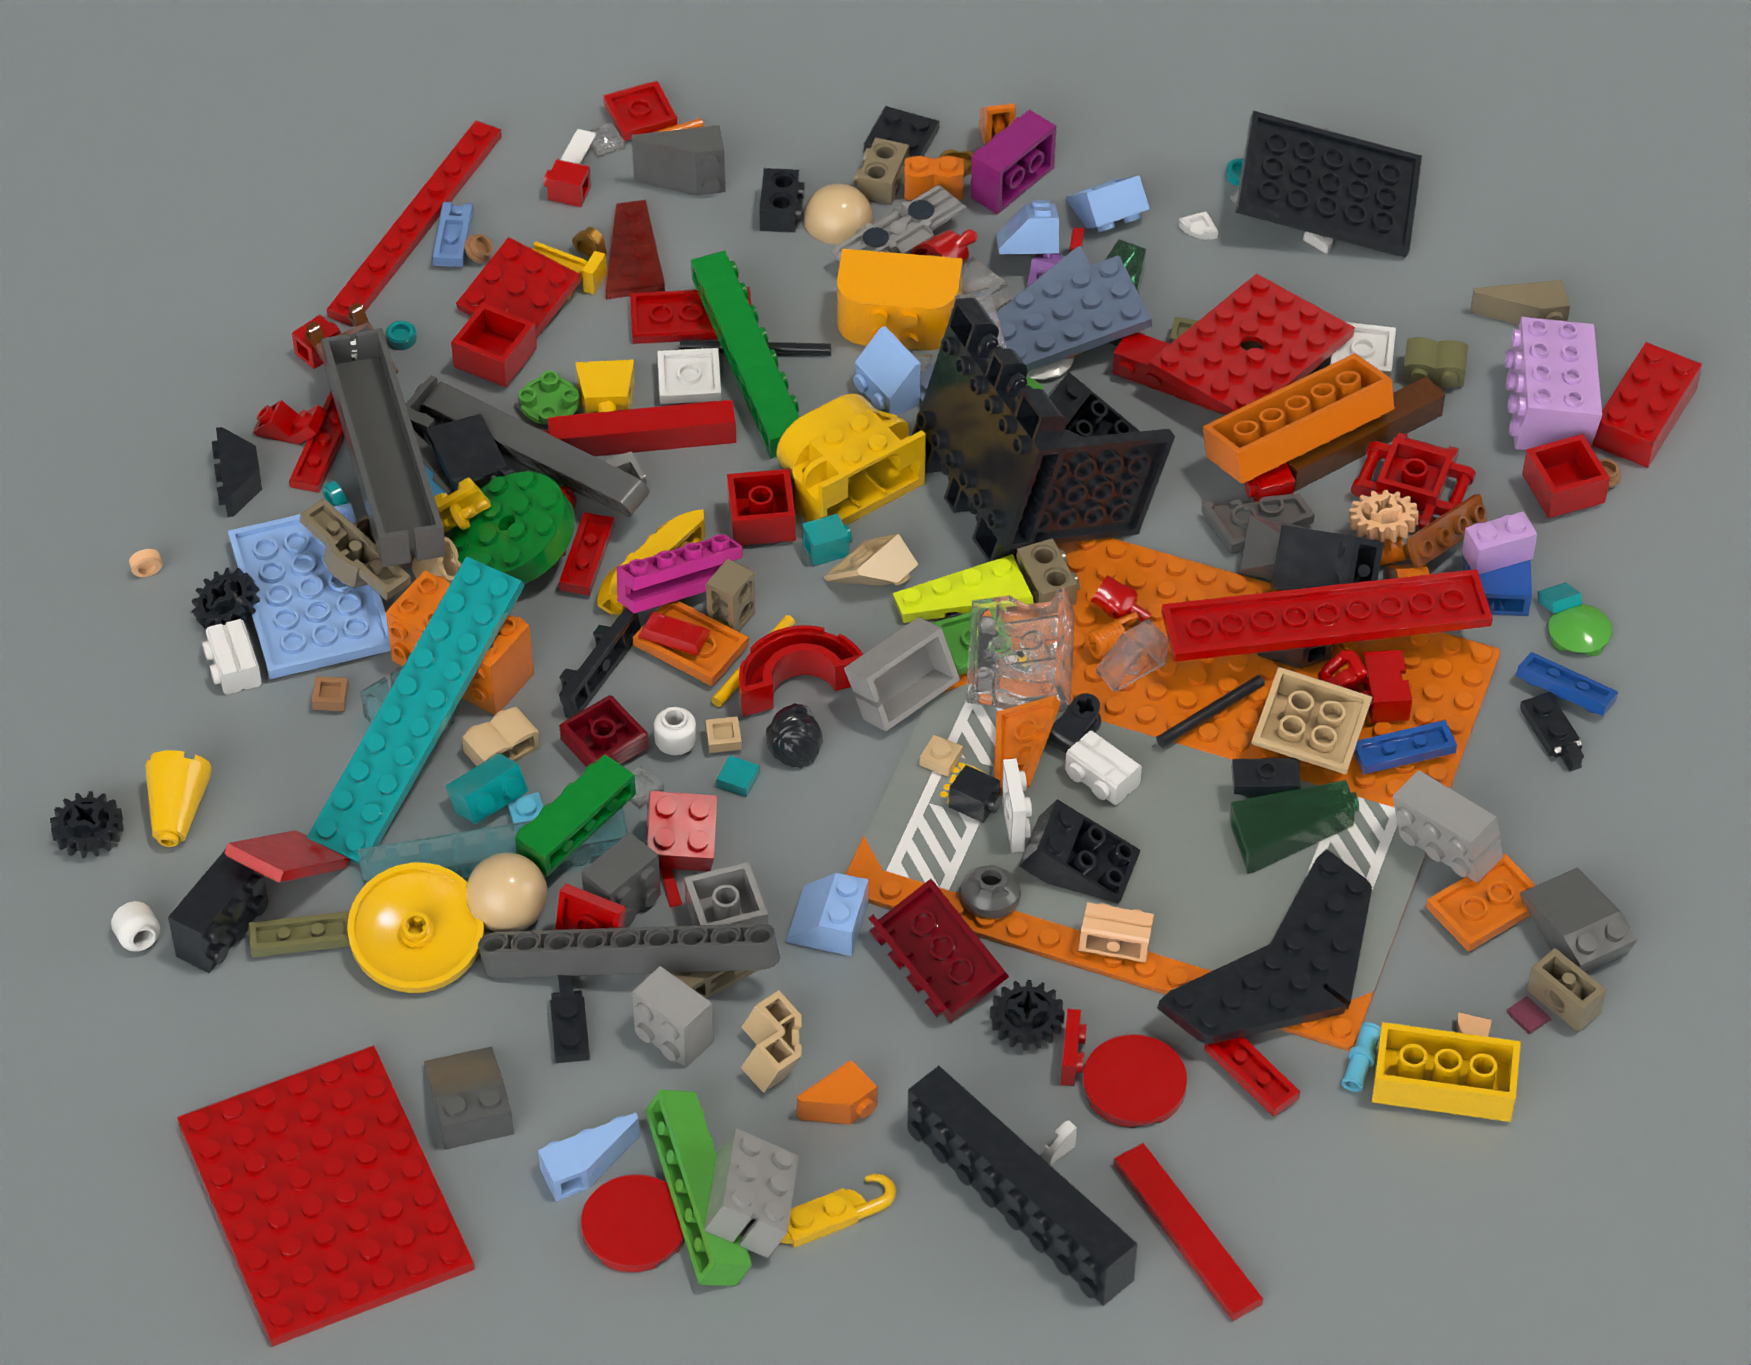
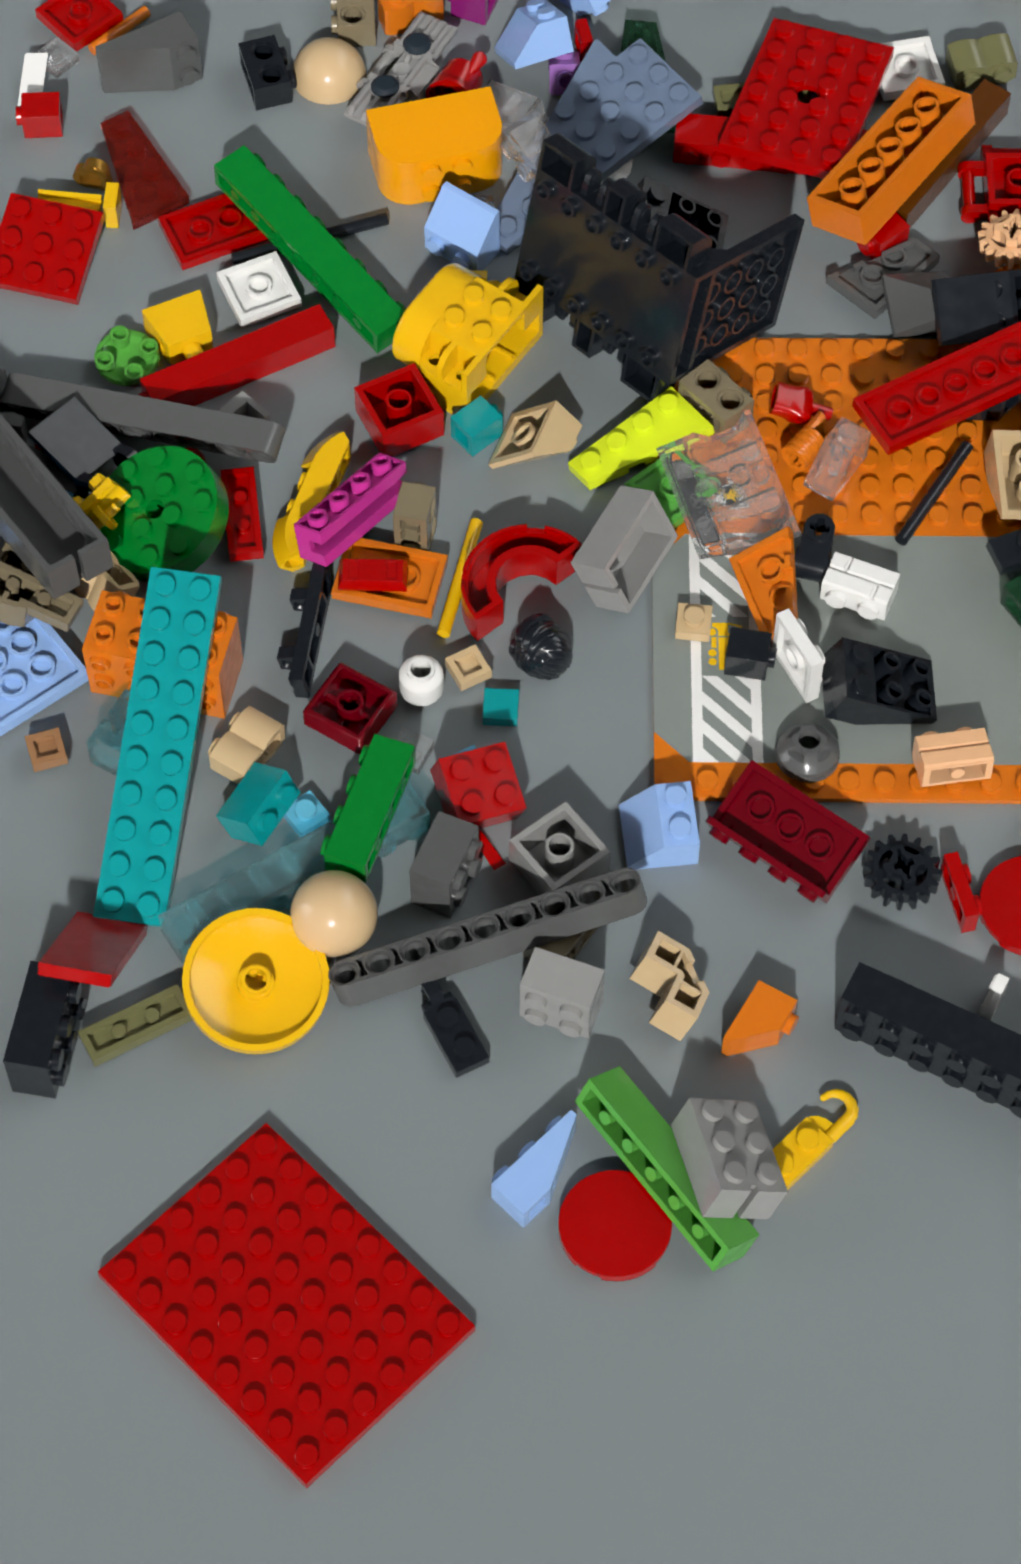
camera: 20 degrees left, 10 degrees up
(469, 1097) = (388, 1144): dark grey slope -> none
(494, 345) = (47, 315): red piece -> none
(586, 910) = (428, 909): red plate -> none

